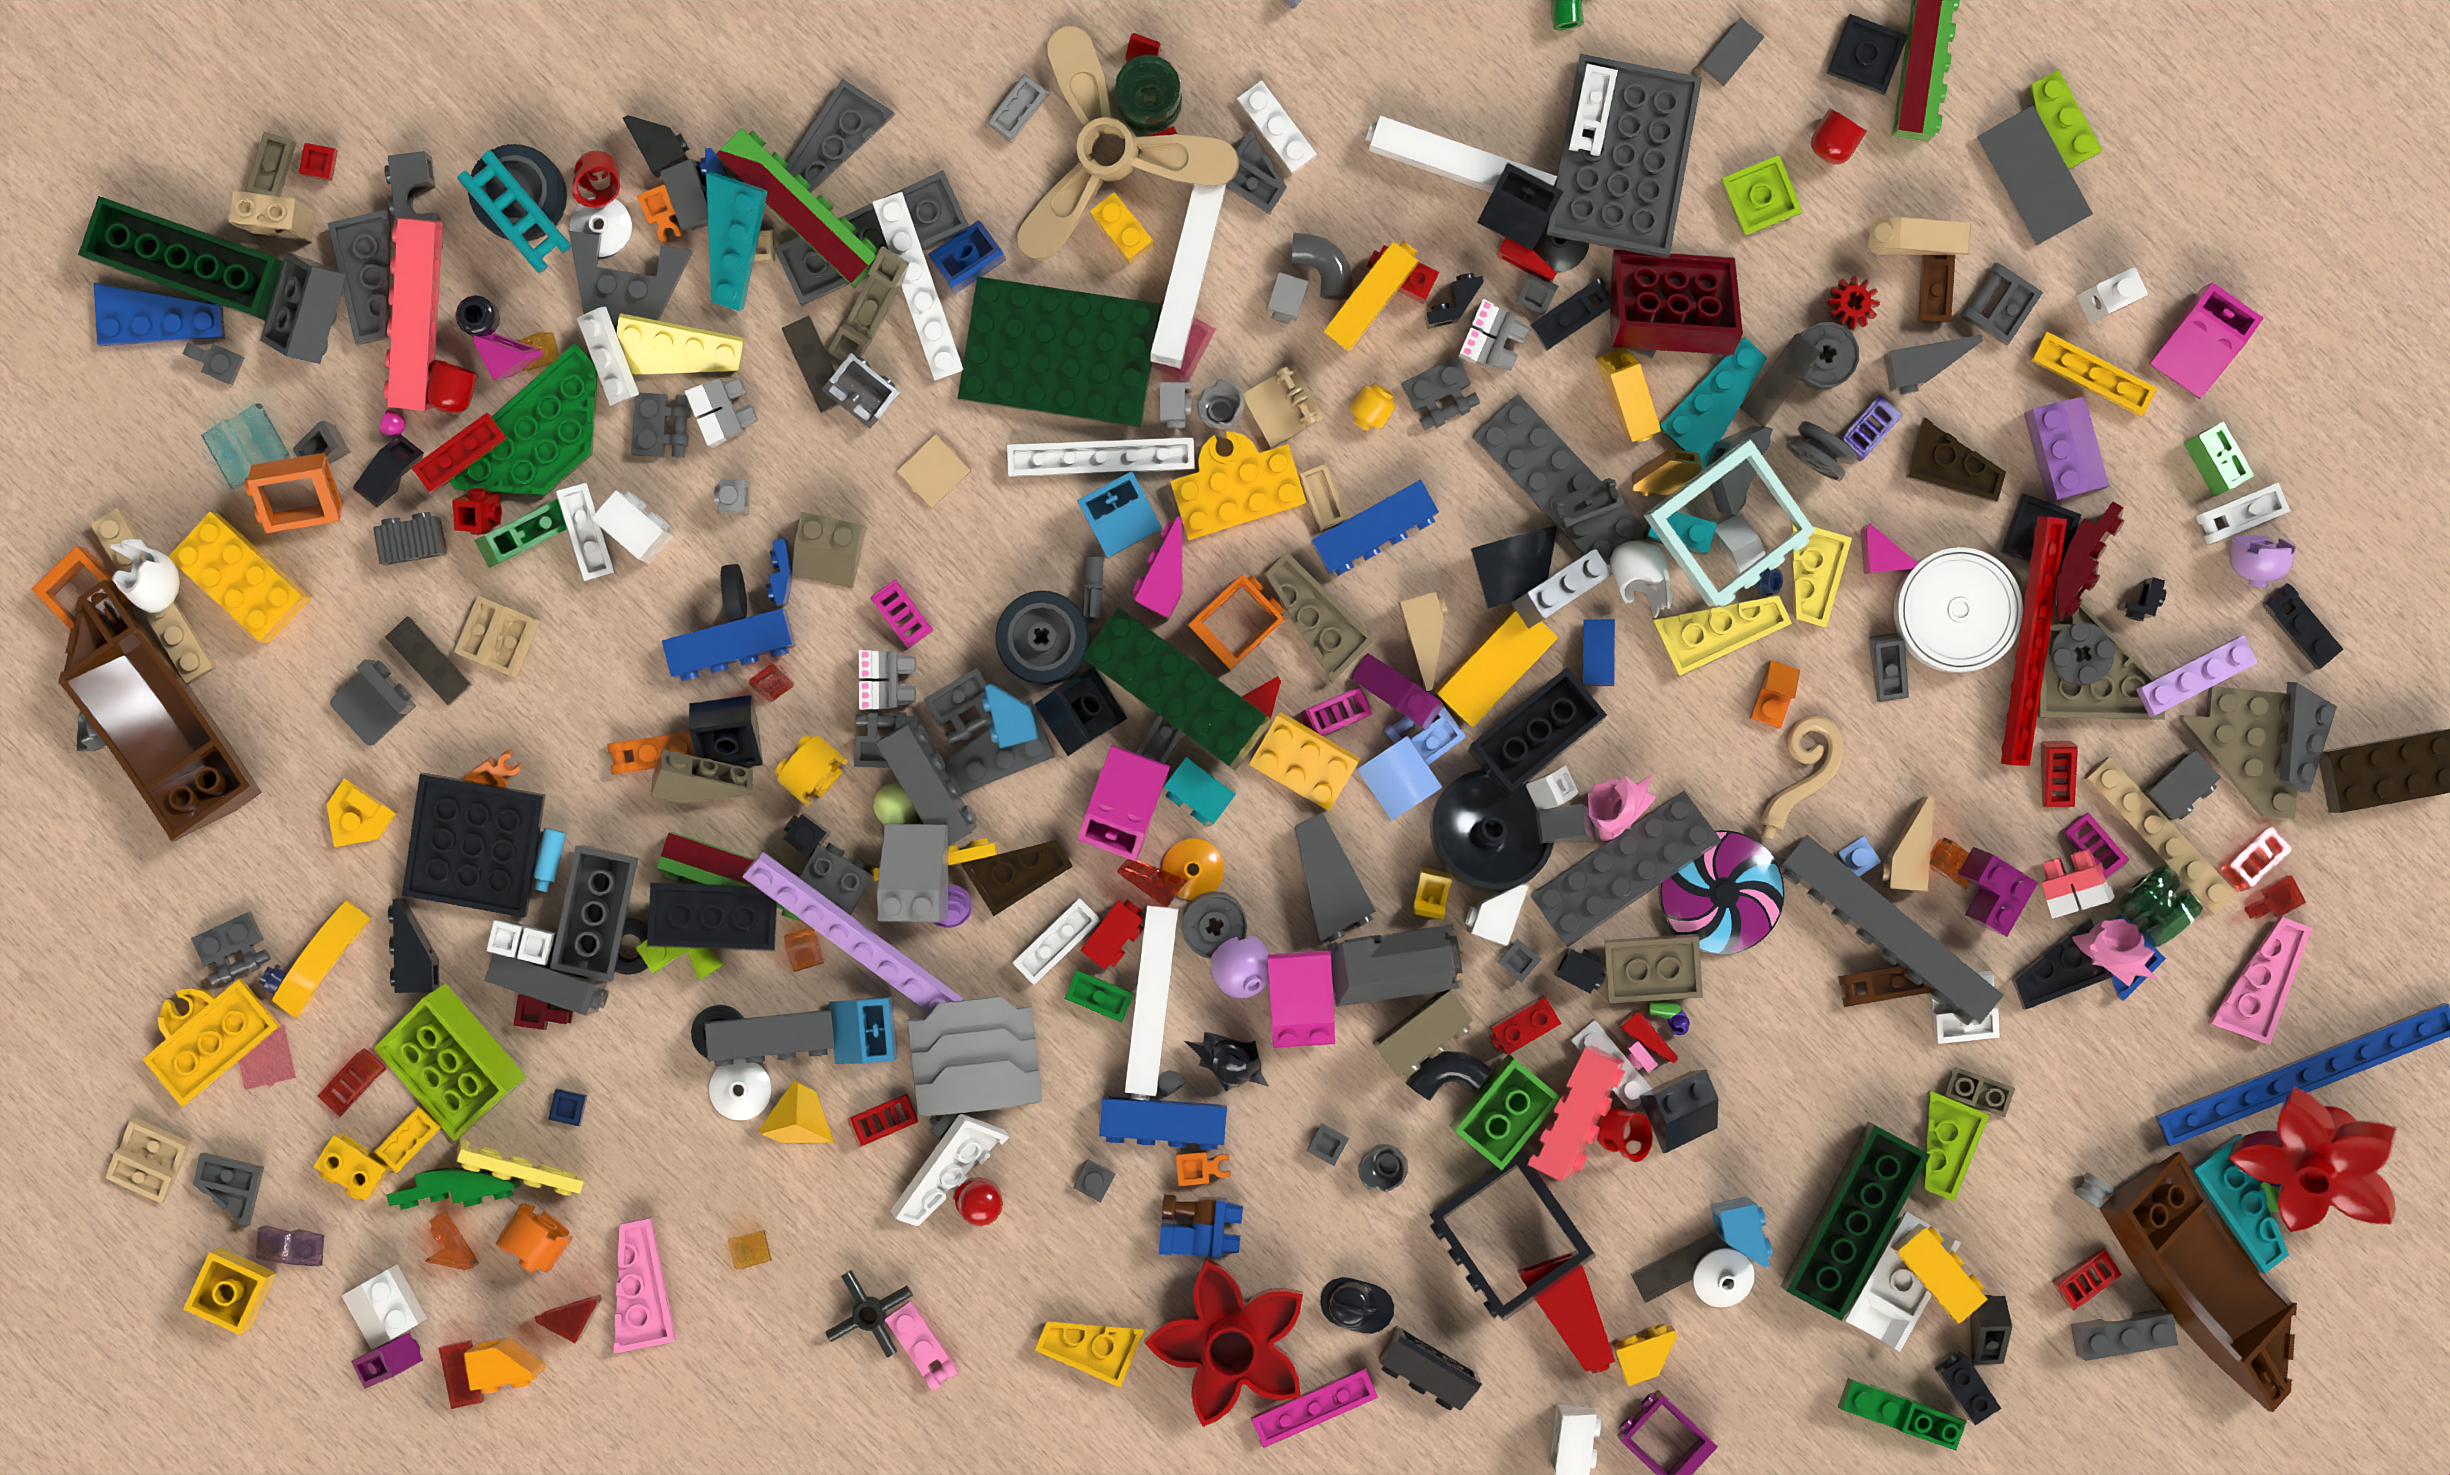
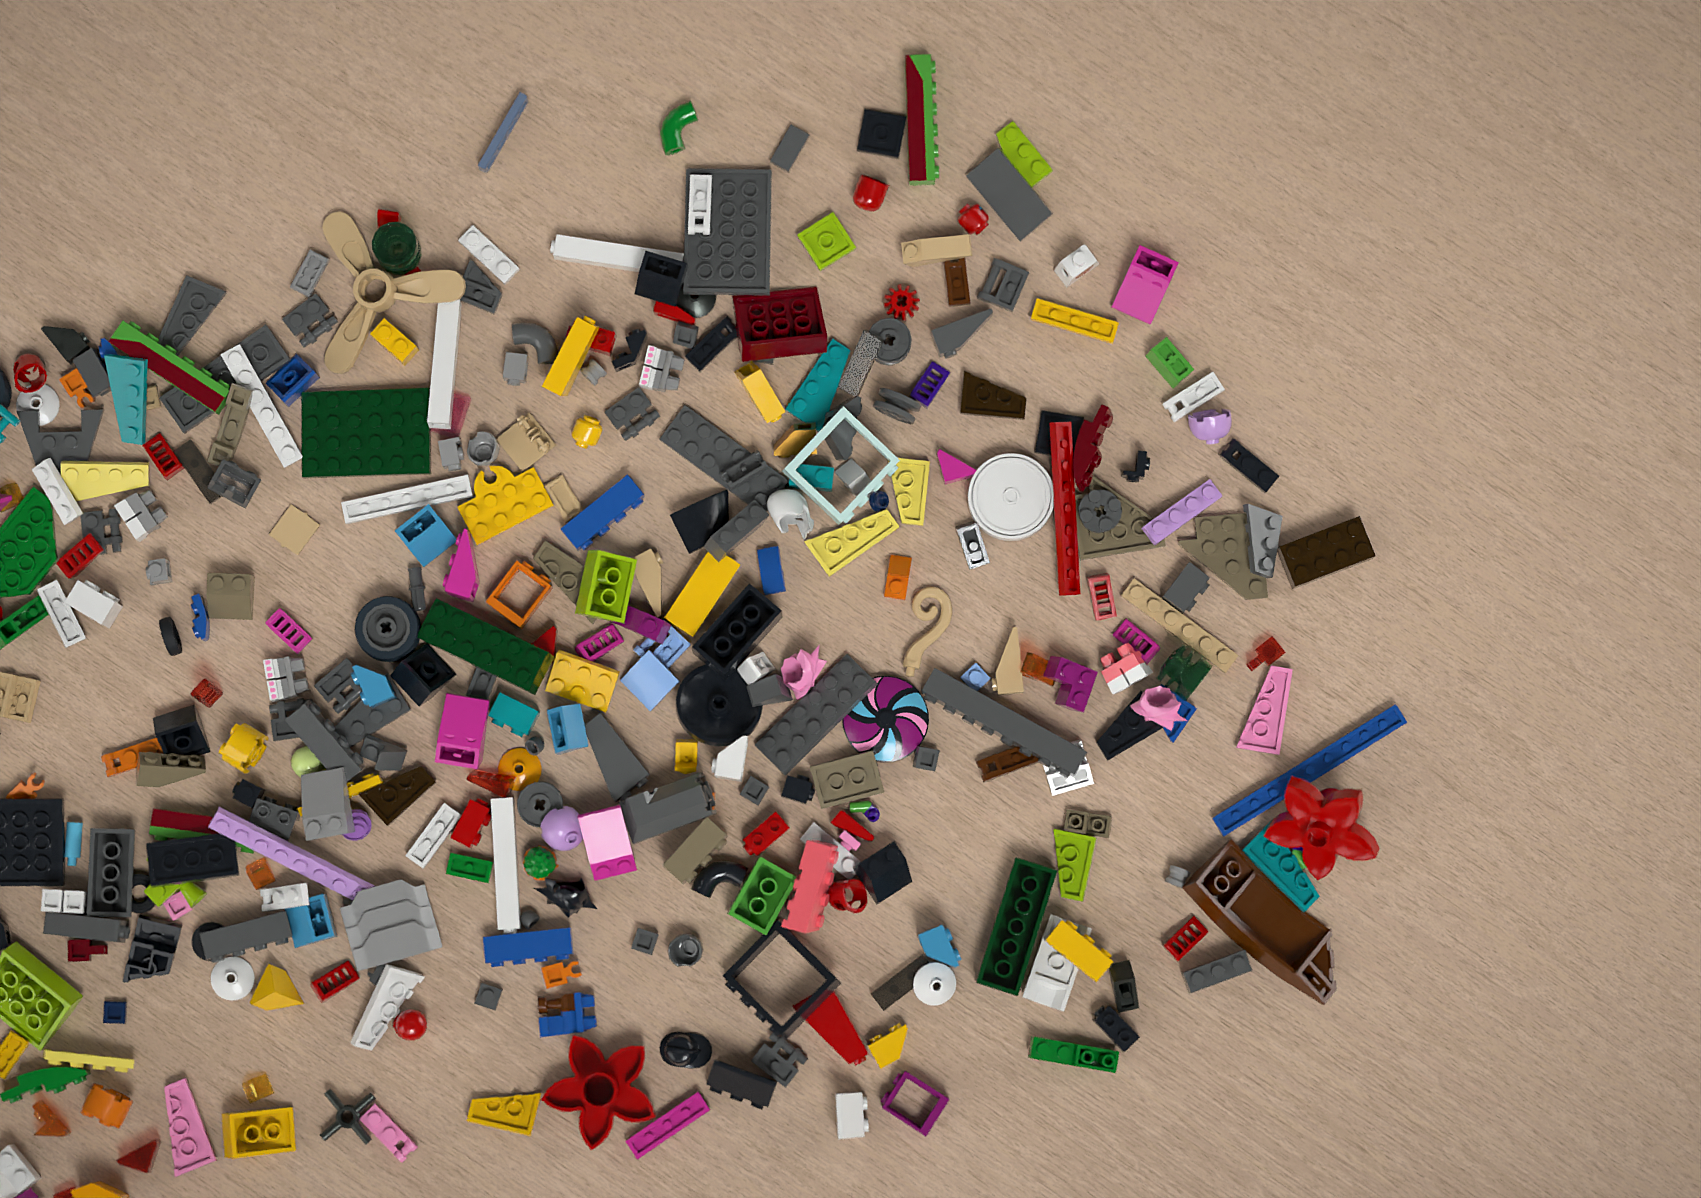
camera: 10 degrees left, 5 degrees down
(607, 464) = (70, 566): none -> red slope
(634, 1028) = (152, 948): none -> black slope
(679, 975) = (177, 906): none -> bright pink plate
(729, 643) = (173, 672): blue brick -> none
(739, 1313) = (258, 1132): none -> yellow slope
(774, 356) = (173, 470): none -> red slope
(833, 992) = (284, 897): none -> white plate
(1002, 167) = (306, 315): none -> dark grey plate
(1009, 815) = (386, 755): none -> dark grey slope
(1199, 1007) = (539, 862): none -> green piece
(1215, 843) = (531, 748): none -> dark grey hinge
(1273, 827) = (567, 728): none -> dark azure slope
(1362, 634) = (605, 586): none -> lime slope
(1396, 323) = (593, 372): none -> light grey wheel
(1480, 1351) = (777, 1066): none -> dark grey plate
(1769, 959) = (926, 758): none -> dark grey plate
(1976, 201) = (973, 219): none -> red head
(2066, 449) = (1066, 374): medium lavender slope -> none
(2241, 872) = (1237, 643): clear red slope -> none

